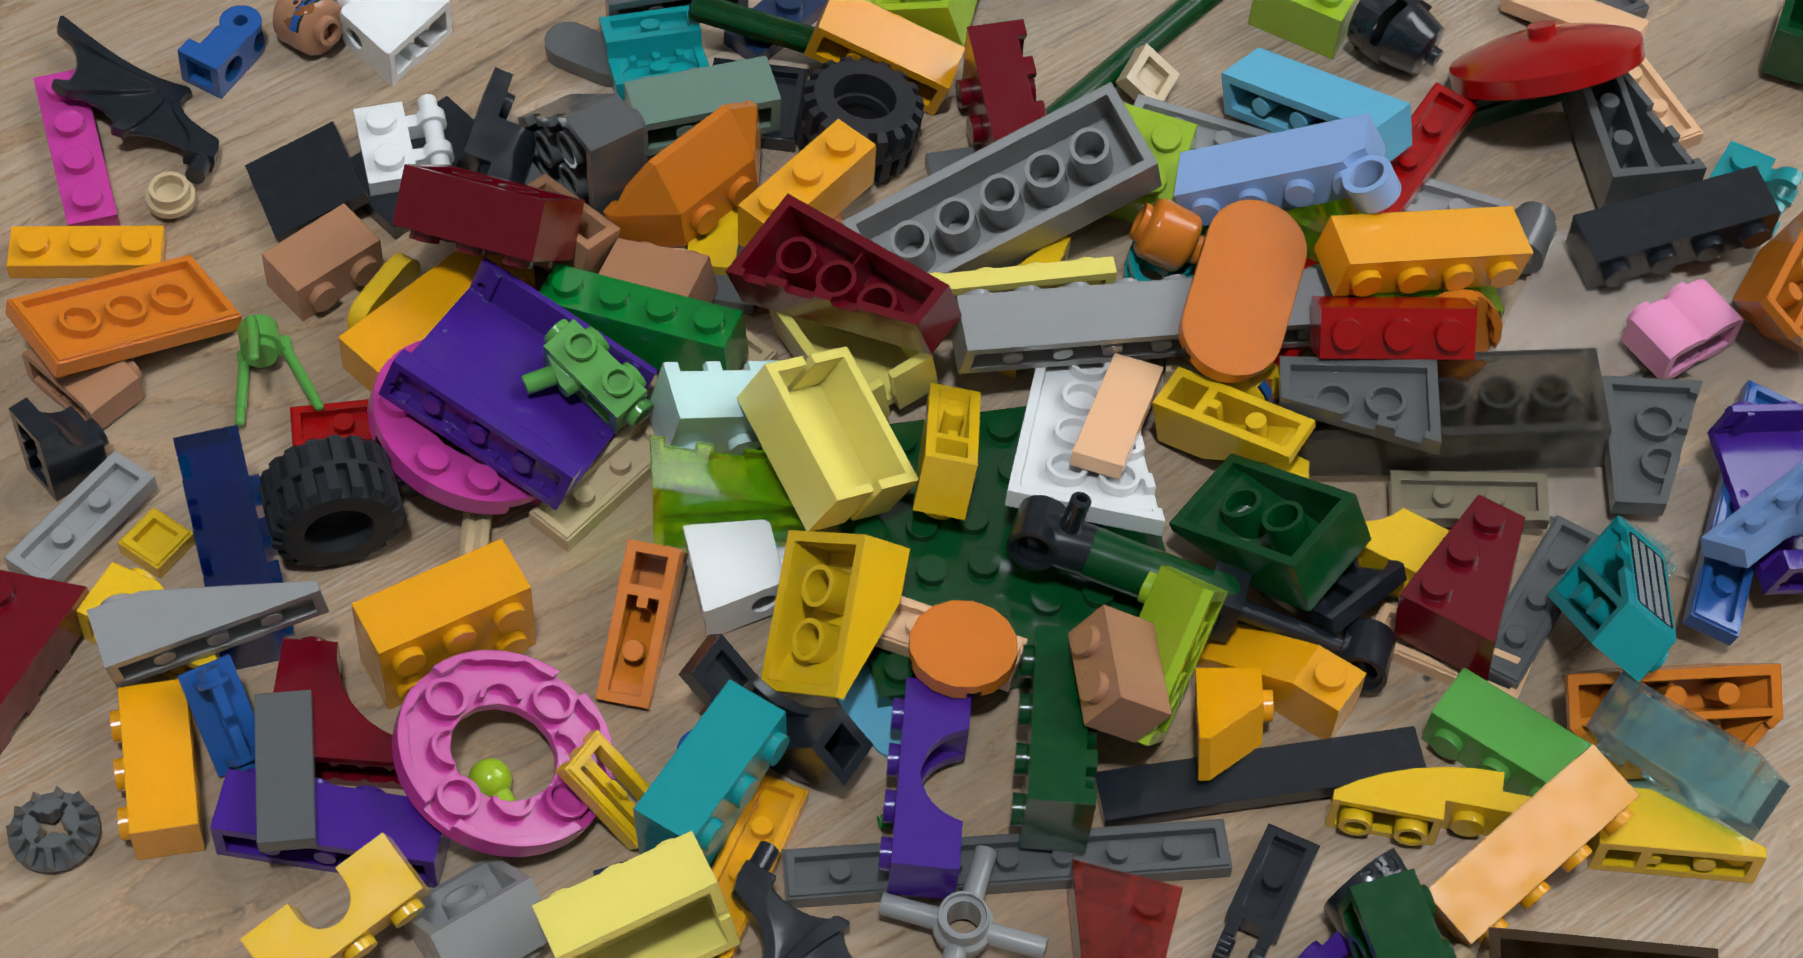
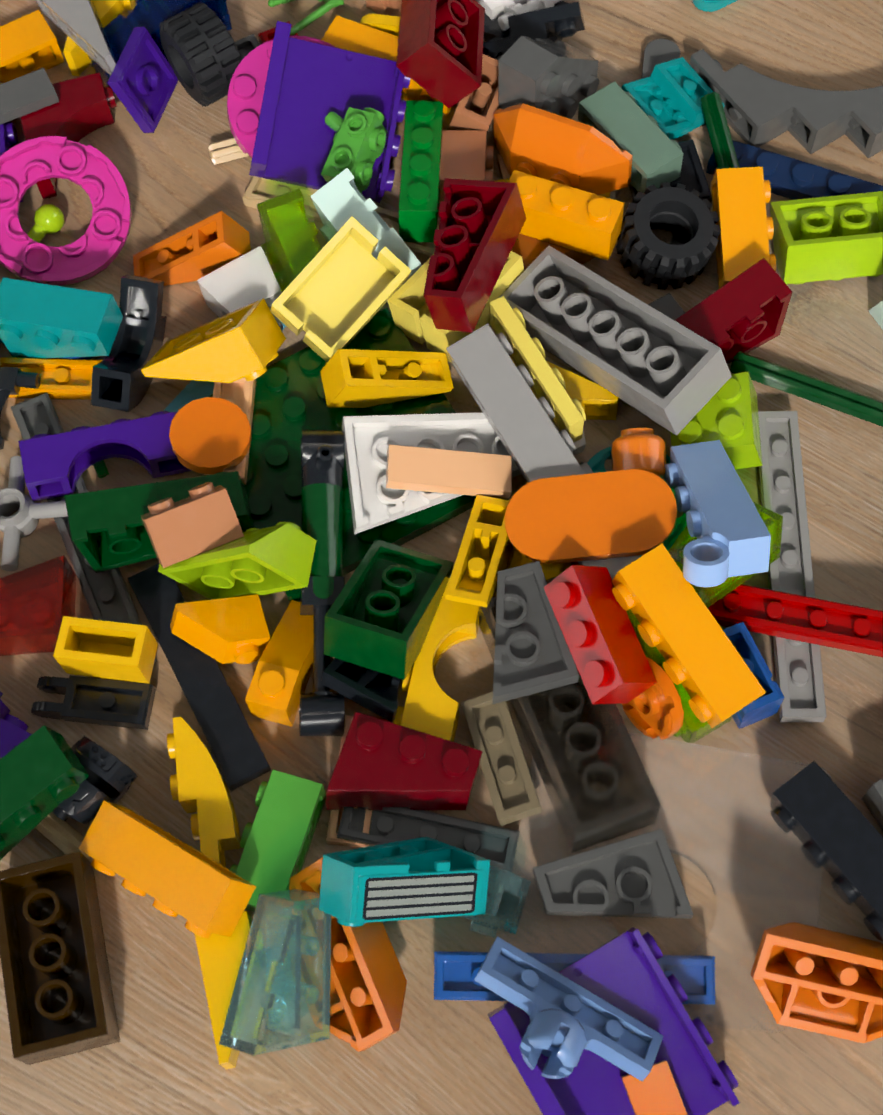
camera: 80 degrees right, 10 degrees up
(221, 714) = (45, 52): blue hinge -> none
(303, 567) = (143, 80): none -> dark purple tile
(442, 613) = (139, 145): light orange brick -> none
(588, 791) = (67, 263): yellow tile -> none
(1147, 74) = (819, 414): tan plate -> none
(1225, 841) = (106, 649): none -> yellow piece
(1292, 95) = (831, 535): medium azure brick -> none
(1540, 230) = (795, 740): dark grey brick -> none
(1681, 328) = (747, 886): bright pink brick -> none

